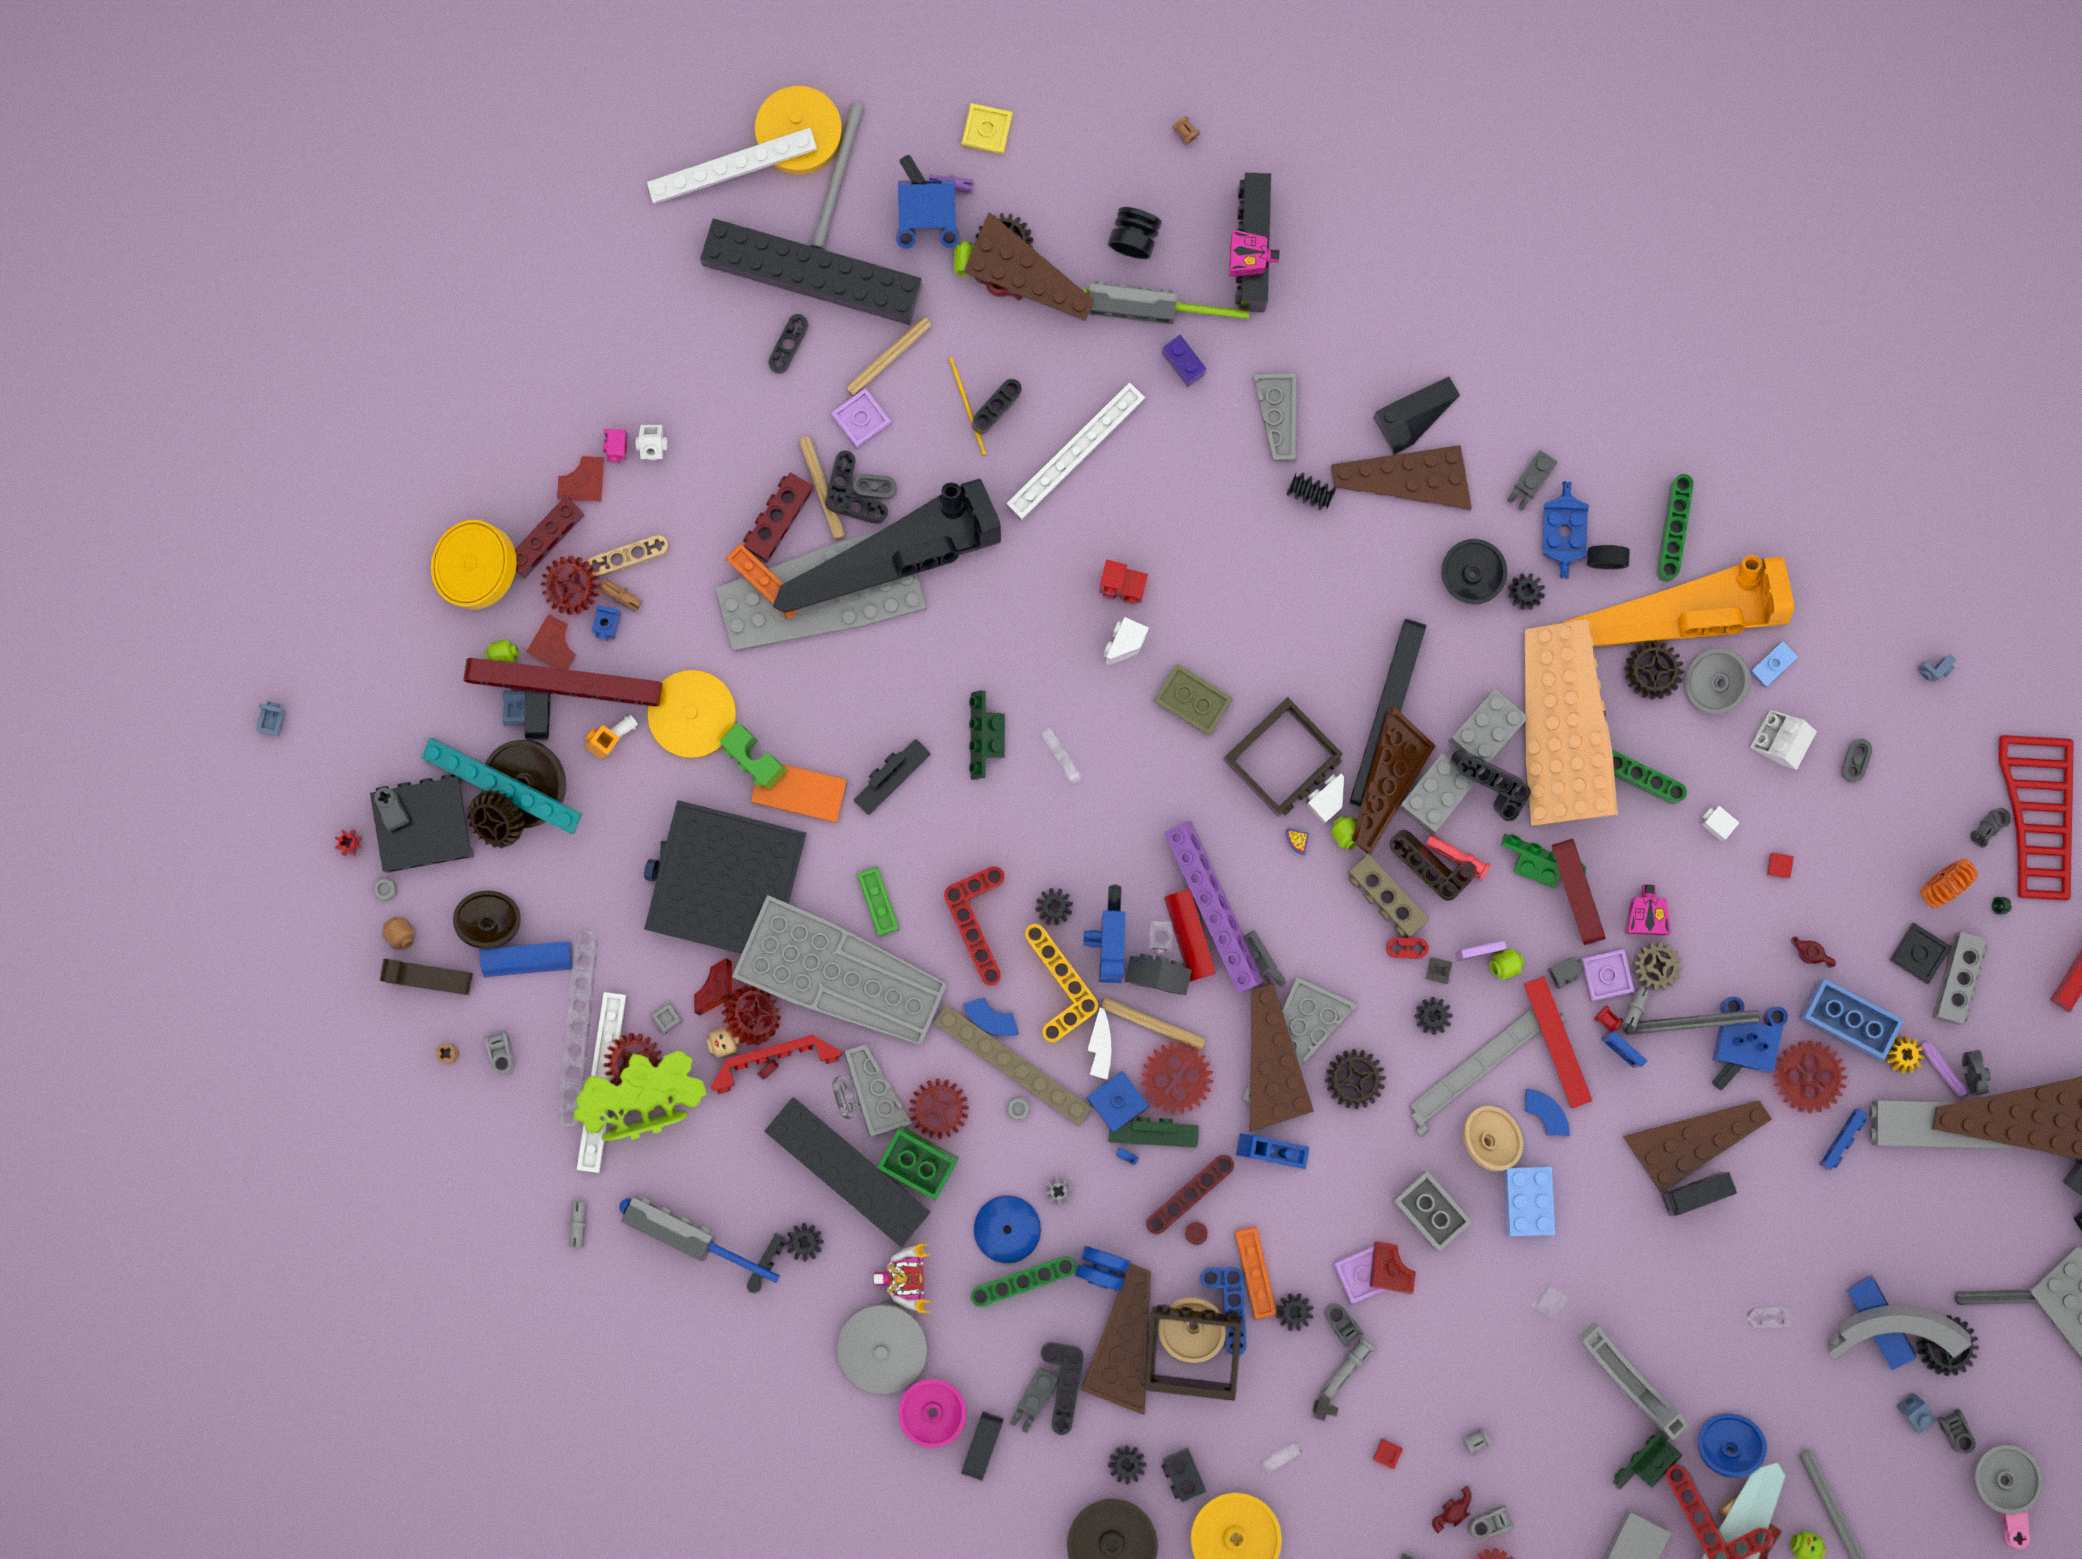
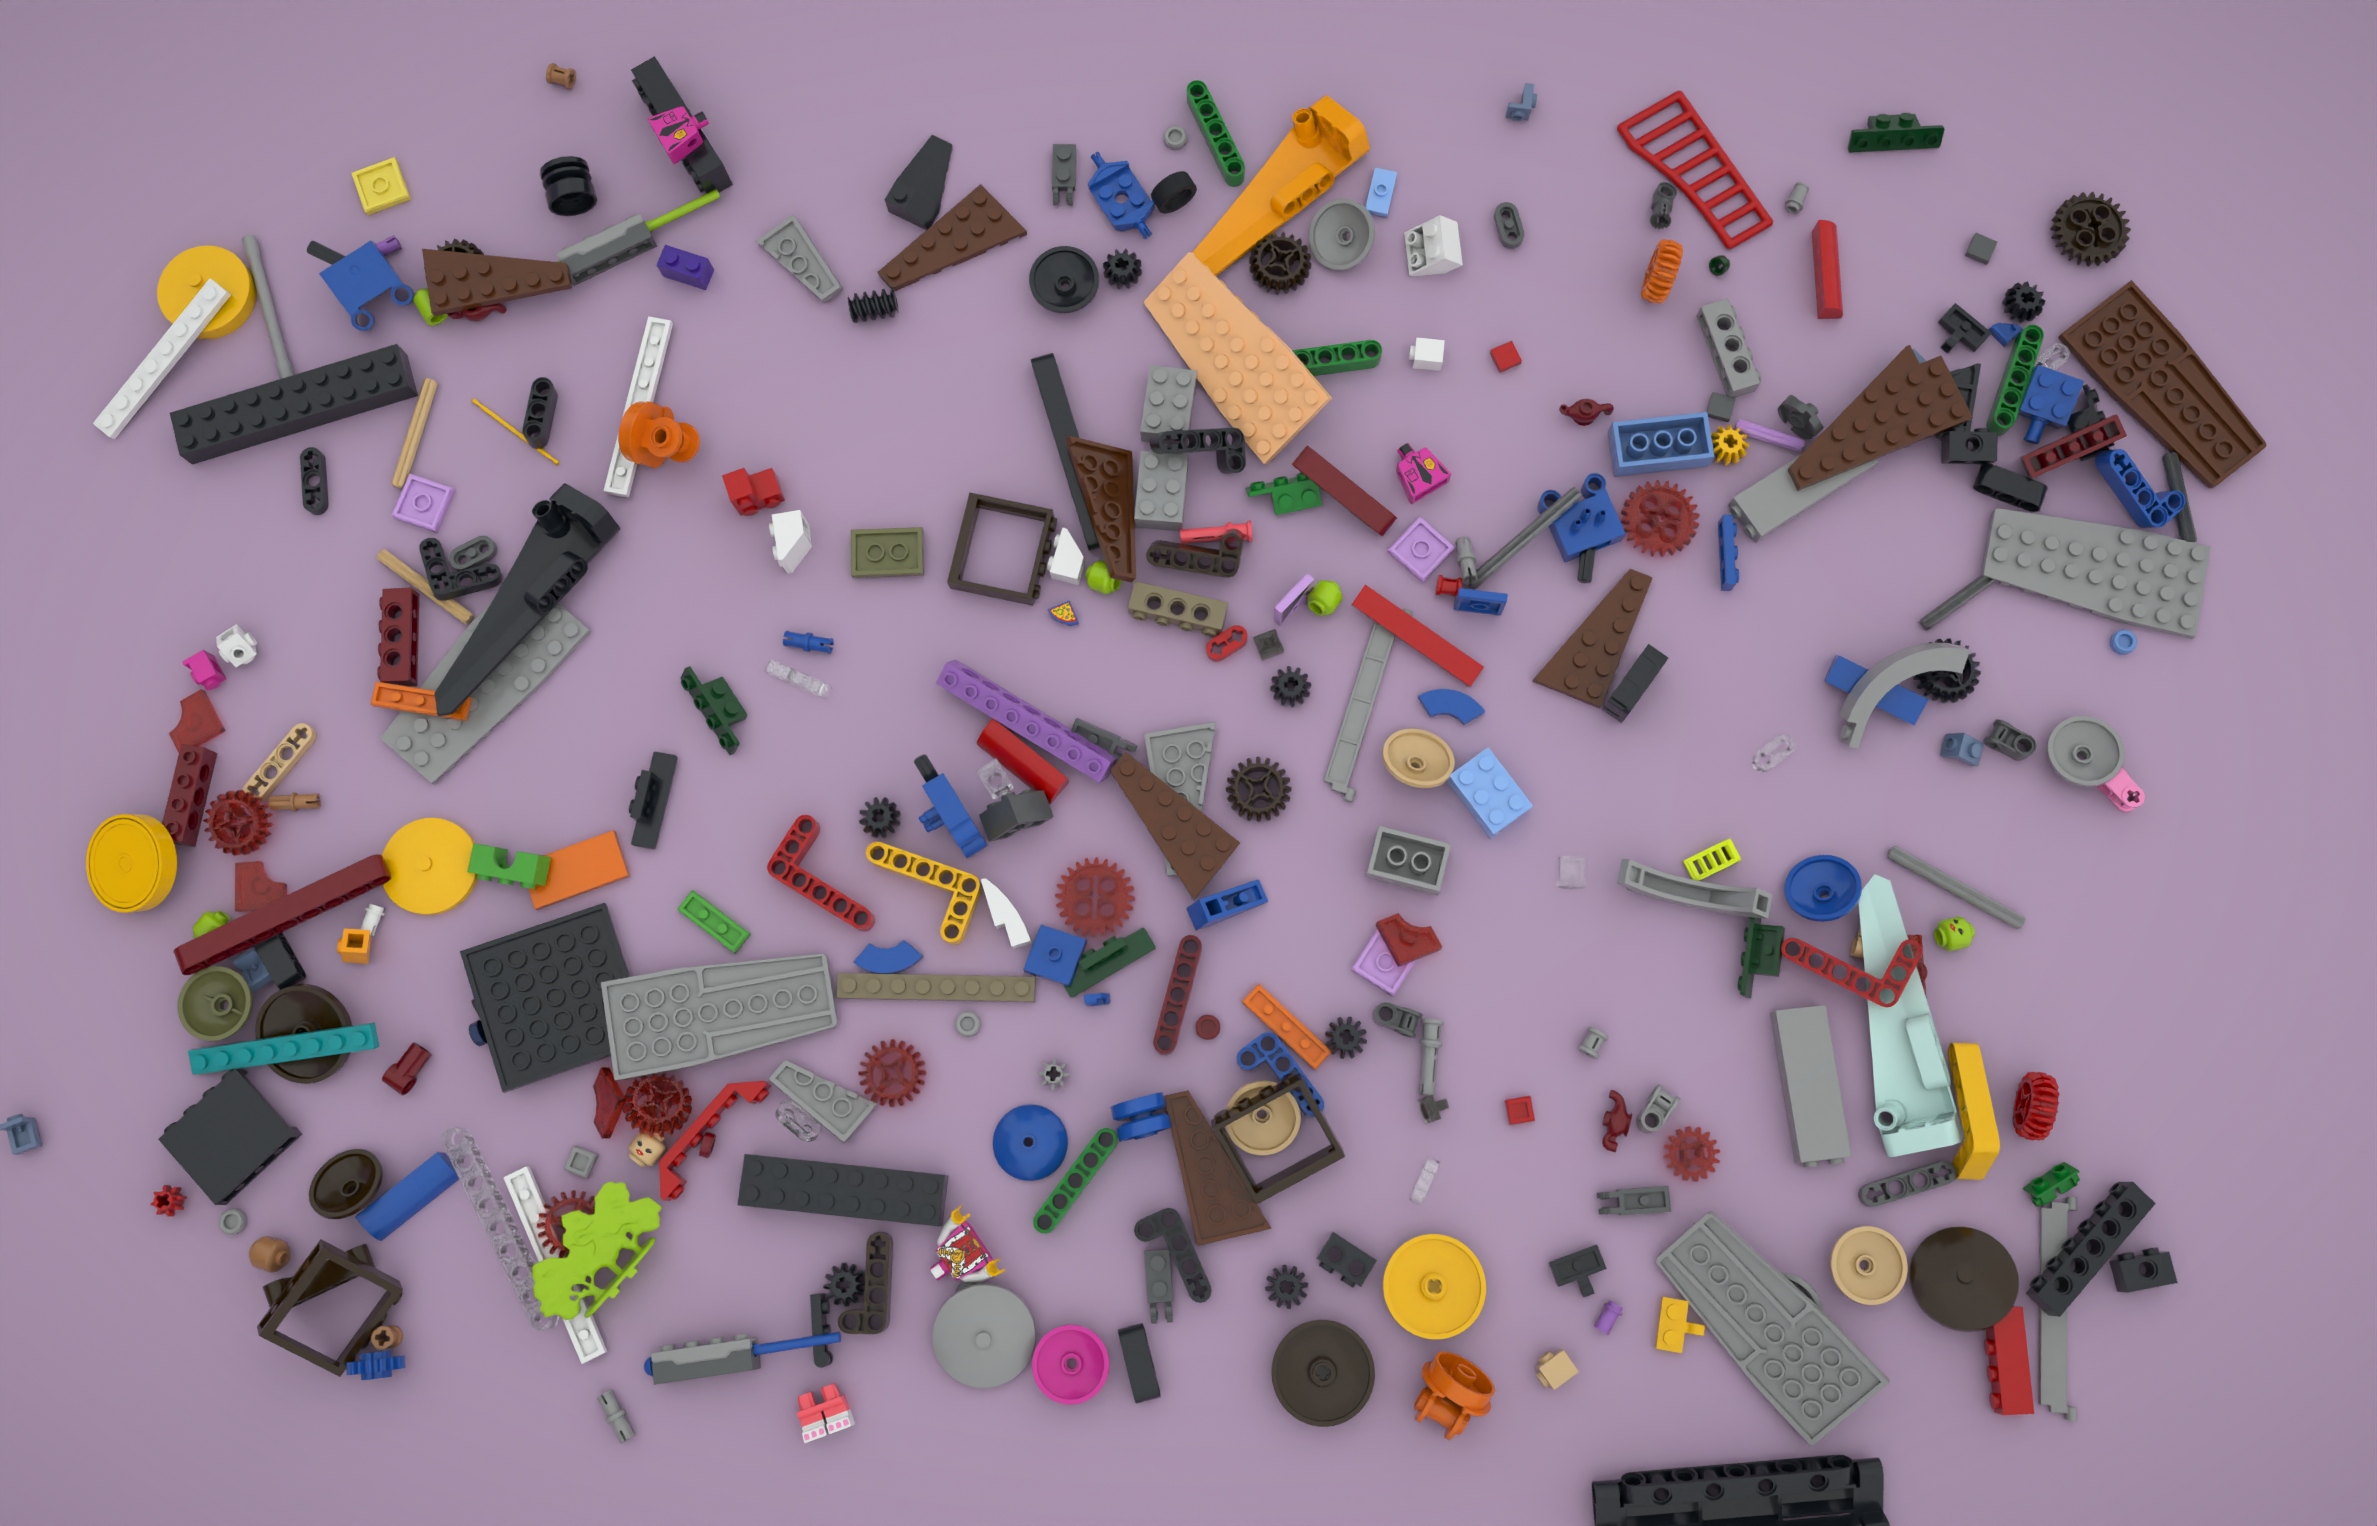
camera: 25 degrees left, 5 degrees down
(393, 812) = (187, 1142): dark grey piece -> none
(412, 977) = (298, 1284): none -> dark brown window
(429, 1070) = (375, 1365): none -> blue gear
(458, 713) = (203, 1002): none -> olive hat
(496, 818) = (295, 1083): dark brown gear -> none
(499, 1051) = (435, 1299): light grey piece -> none
(577, 862) = (402, 1075): none -> dark red piece
(610, 630) = (302, 839): blue brick -> none
(720, 1321) = (826, 1417): none -> coral hips
(825, 1254) = (872, 1282): none -> dark brown beam
(918, 1162) = (903, 1136): green brick -> none
(1072, 489) = (651, 435): none -> orange piece
(1086, 730) = (808, 642): none -> blue pin
(1153, 1023) = (1041, 863): tan axle -> none
(1566, 971) = (1382, 569): dark grey brick -> none
(1640, 508) = (1175, 137): none -> light grey tile
(1660, 975) = (1452, 505): dark tan gear -> none
(1682, 1369) = (1730, 850): none -> neon yellow slope
(1920, 953) = (1679, 351): black tile -> none
(1921, 1019) = (1720, 407): none -> dark grey tile

